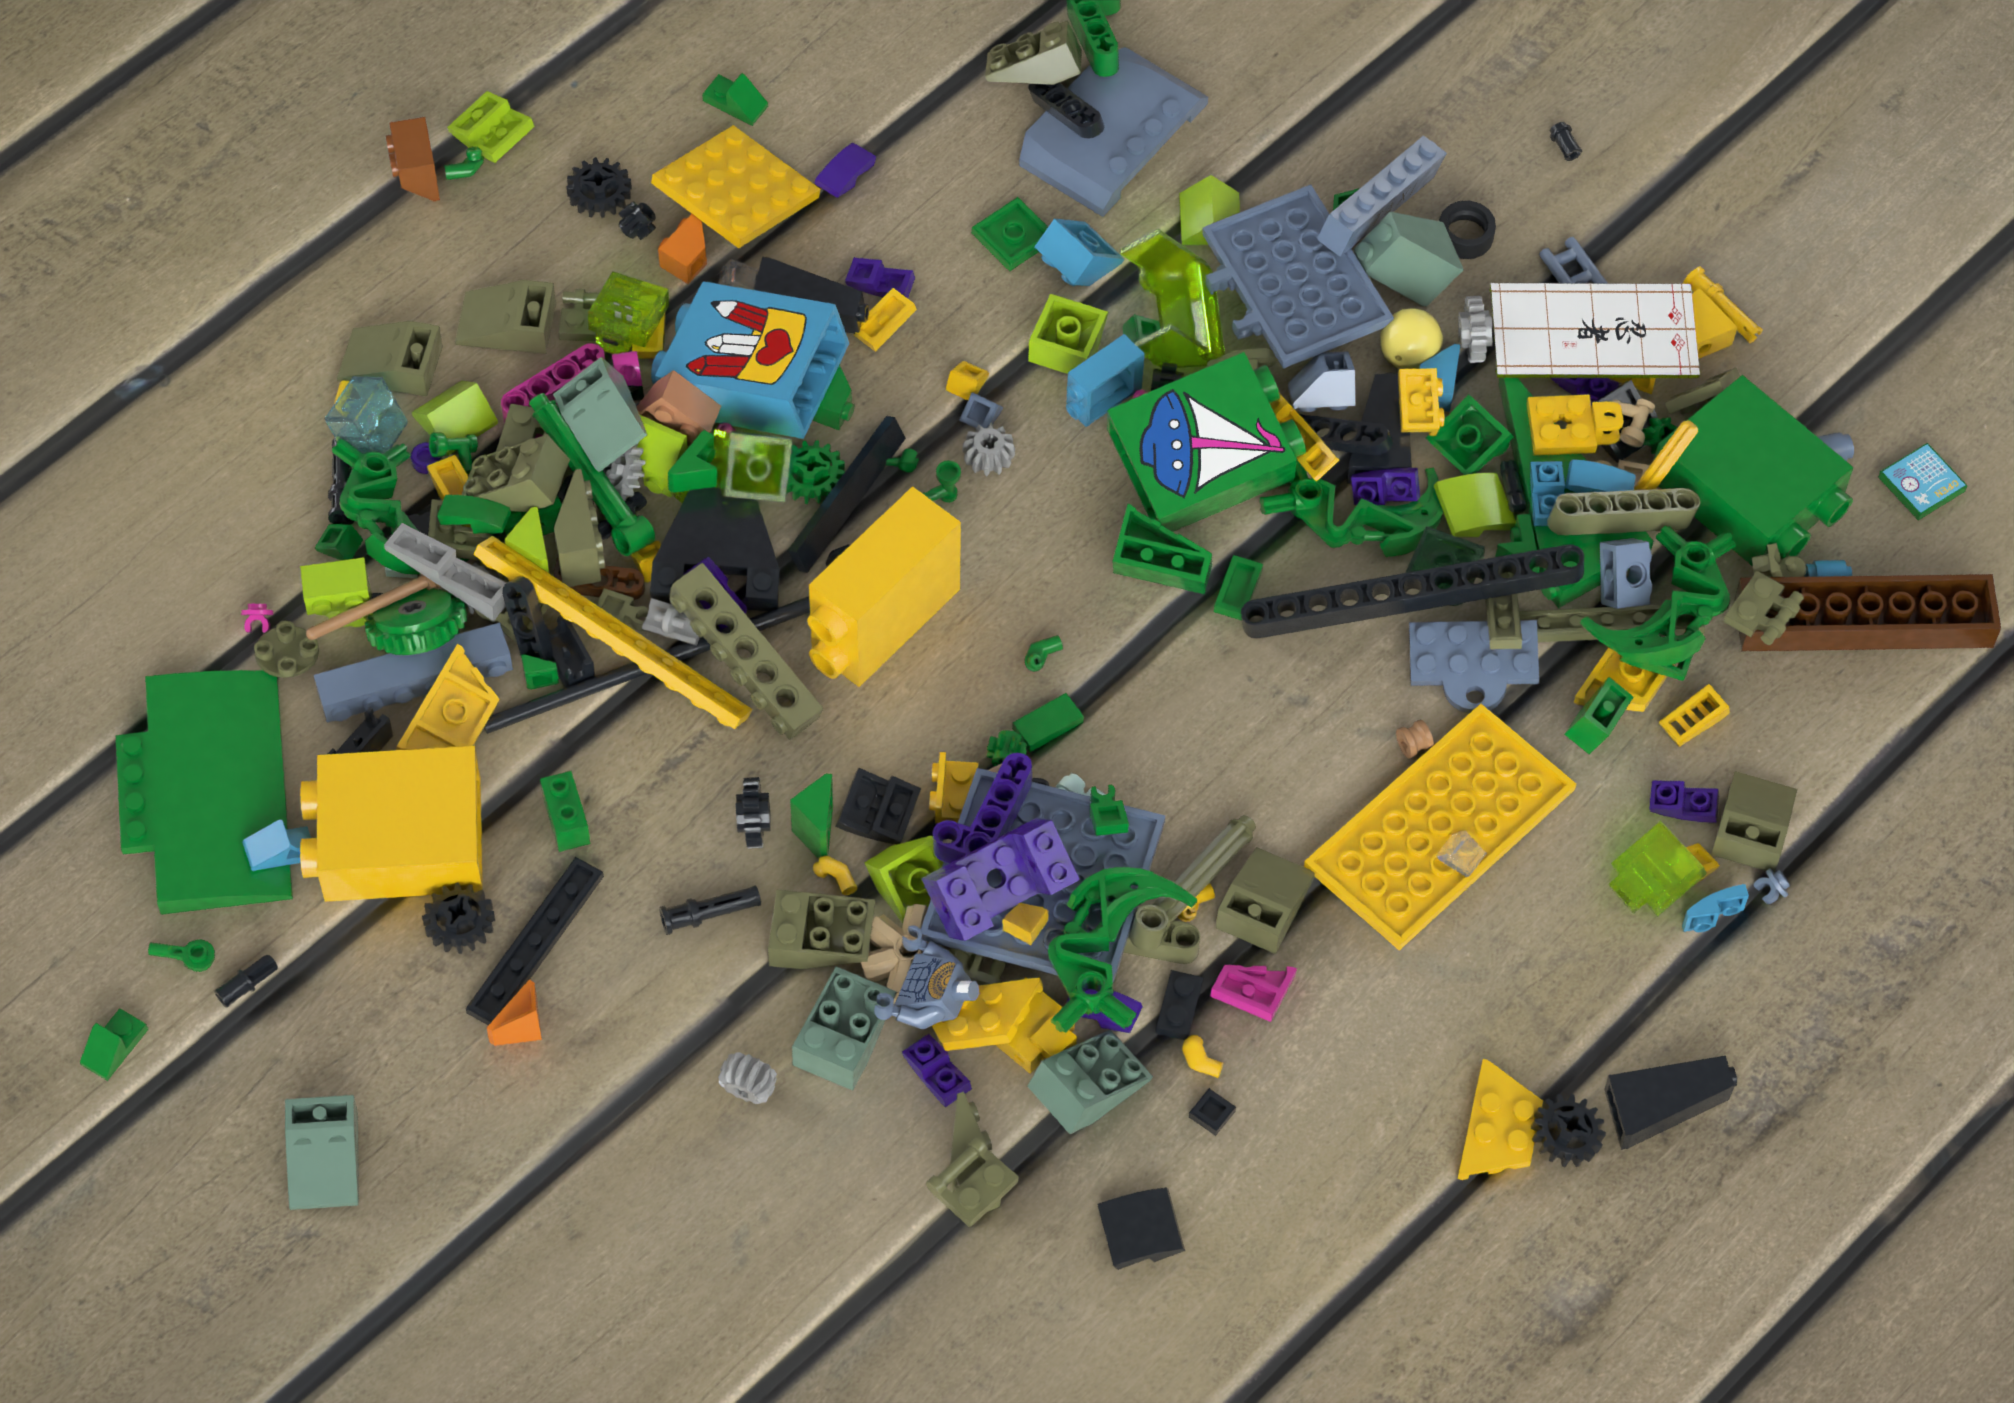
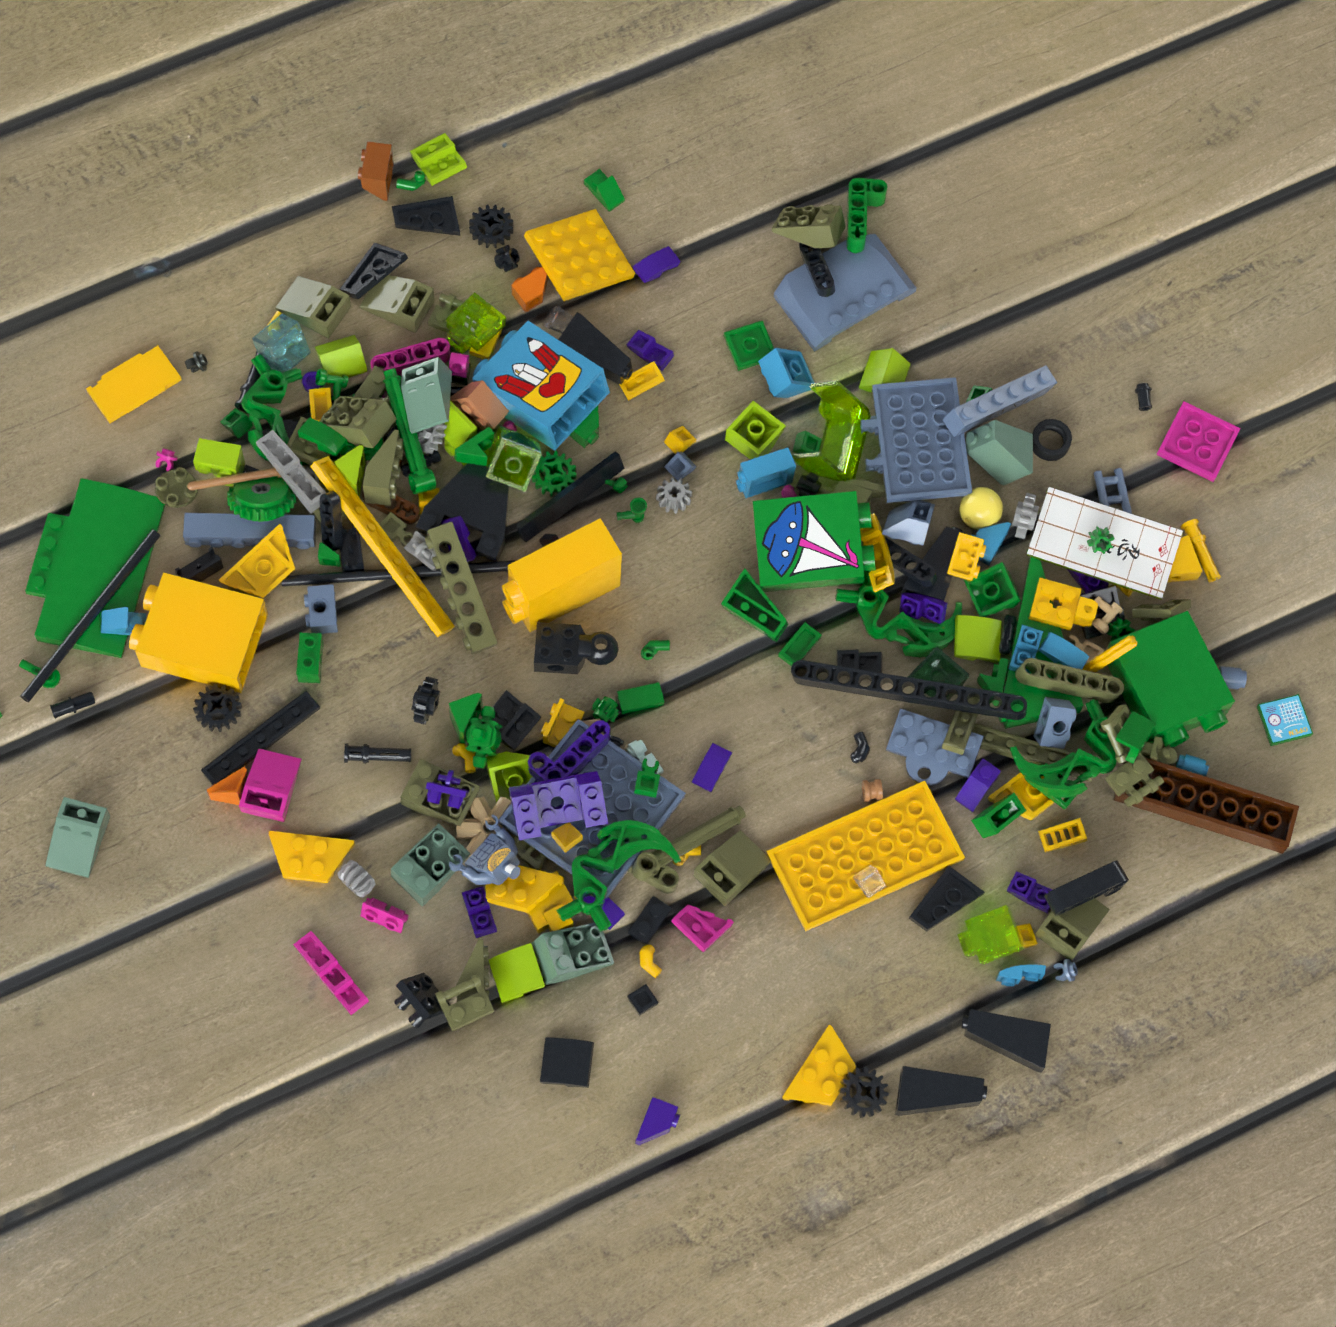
camera: 15 degrees right, 10 degrees up
(172, 534) = (133, 383): none -> yellow piece
(228, 853) = (90, 616): none -> black piece
(251, 482) = (197, 363): none -> pearl dark grey plate
(456, 286) = (372, 269): none -> black wing
(506, 200) = (428, 216): none -> black wing
(556, 727) = (321, 597): none -> sand blue brick
(575, 997) = (270, 785): none -> dark pink slope
(664, 1074) = (308, 855): none -> yellow wing
(759, 1218) = (331, 972): none -> dark pink slope
(792, 1117) = (374, 911): none -> dark pink hinge
(817, 917) = (456, 794): none -> dark purple hips
(855, 832) = (483, 737): none -> green piece
(897, 1196) = (420, 993): none -> black plate
(919, 685) = (566, 646): none -> black brick
(1023, 1131) = (516, 972): none -> lime slope
(1183, 779) = (712, 767): none -> dark purple slope
(1300, 1261) = (657, 1121): none -> dark purple slope
(1318, 578) = (860, 660): none -> black slope
(1378, 689) = (862, 748): none -> black arm
(1554, 687) = (978, 785): none -> dark purple slope
(1572, 846) = (944, 899): none -> black wing
(1582, 322) = (1095, 542): none -> green gear
(1660, 174) = (1198, 441): none -> dark pink plate
(1723, 553) = (1117, 720): none -> olive plate
(1735, 993) = (1011, 1036): none -> black slope
(1742, 544) = (1135, 734): none -> green panel
(1773, 752) = (1101, 881): none -> black beam

